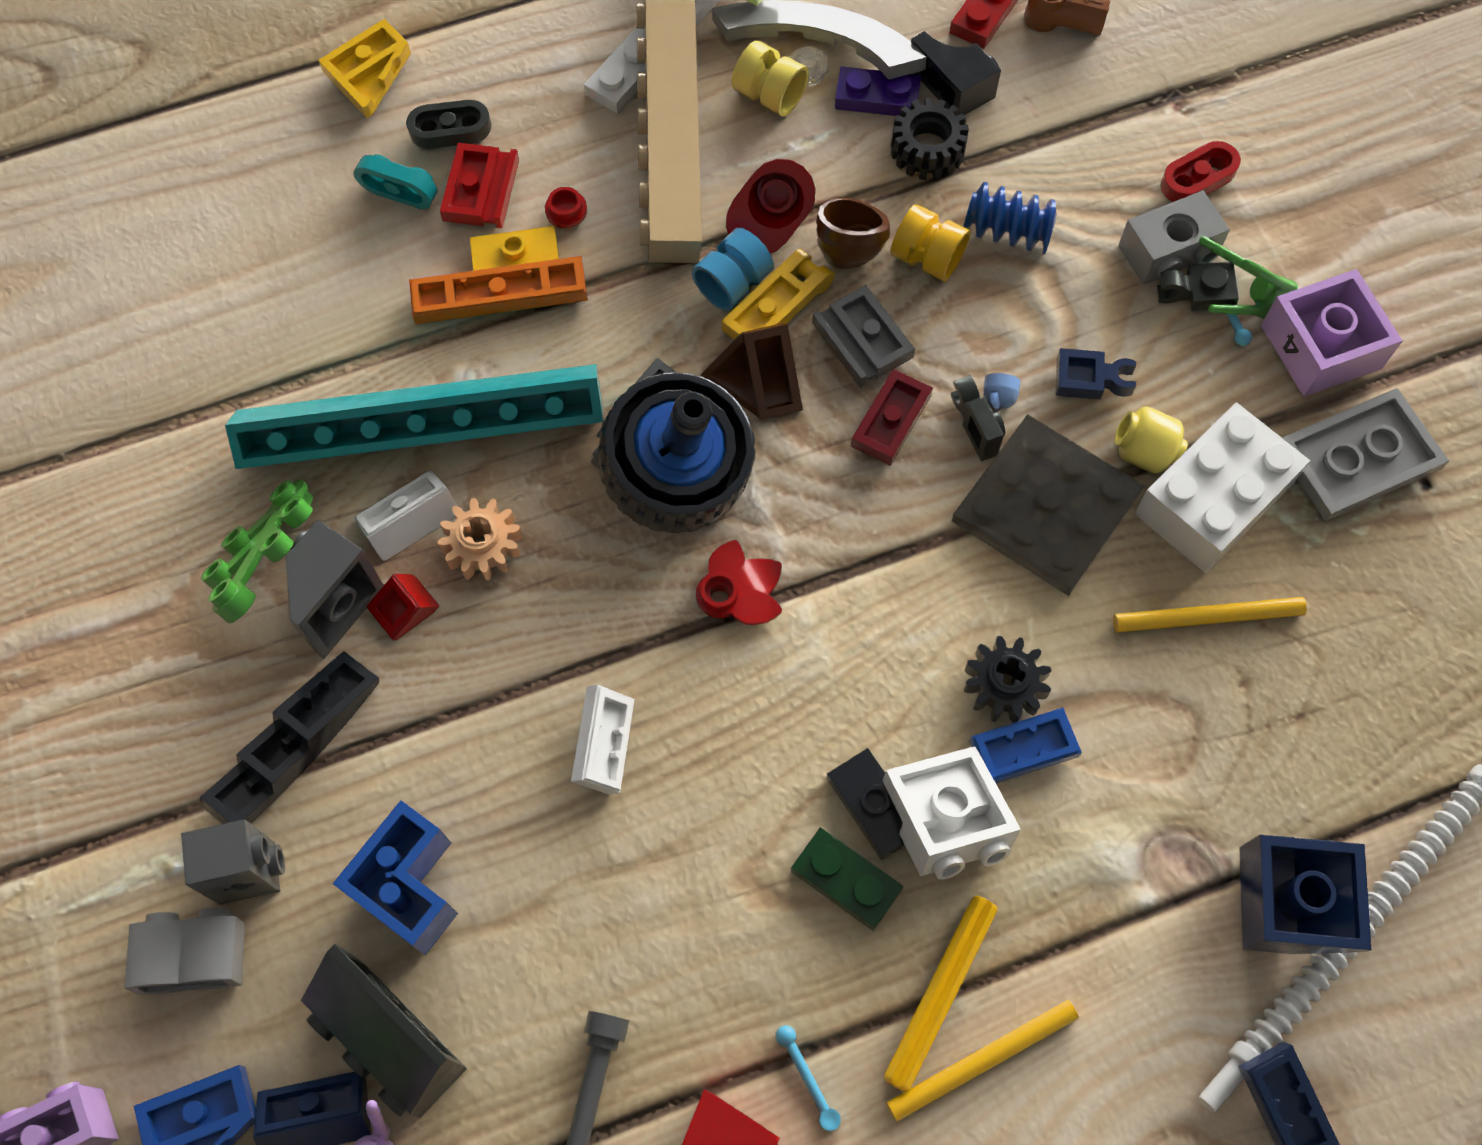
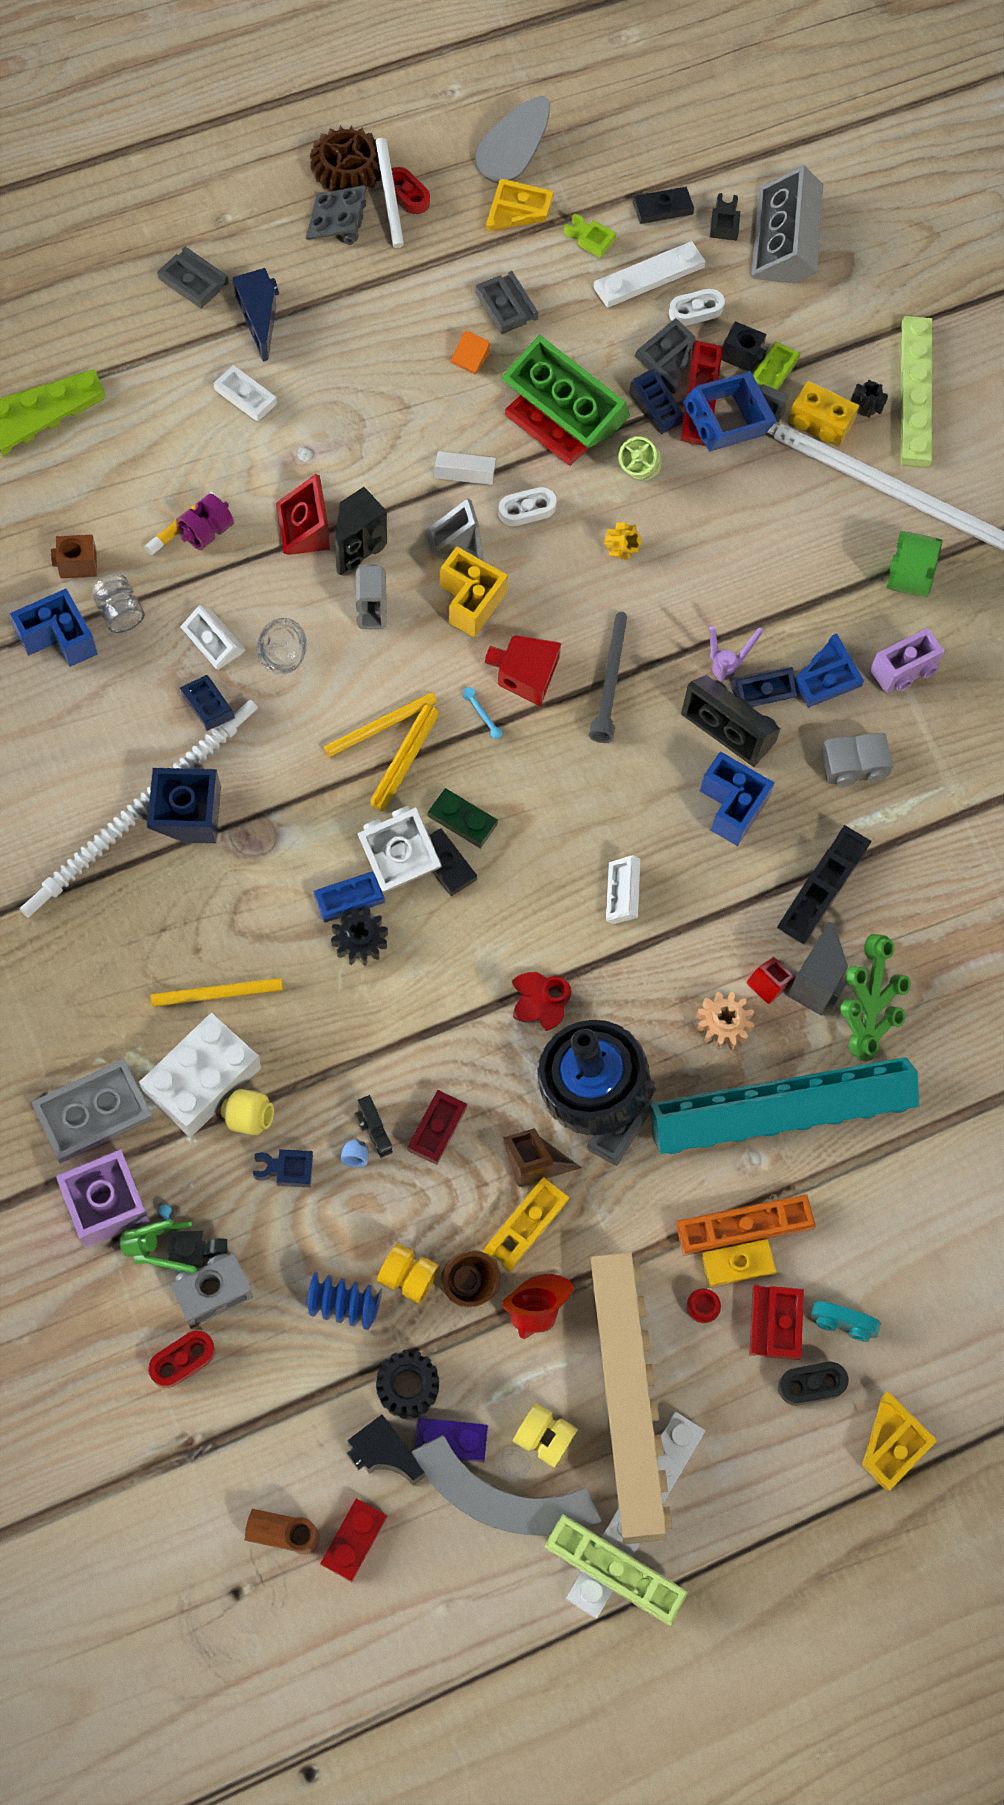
camera: 170 degrees right, 0 degrees up
(231, 862) = (839, 799): dark grey brick -> none
(406, 515) = (782, 1045): white slope -> none
(730, 271) = (564, 1242): dark azure wheel -> none
(863, 335) = (460, 1194): dark grey plate -> none
(1047, 504) = (323, 1069): clear smoke plate -> none

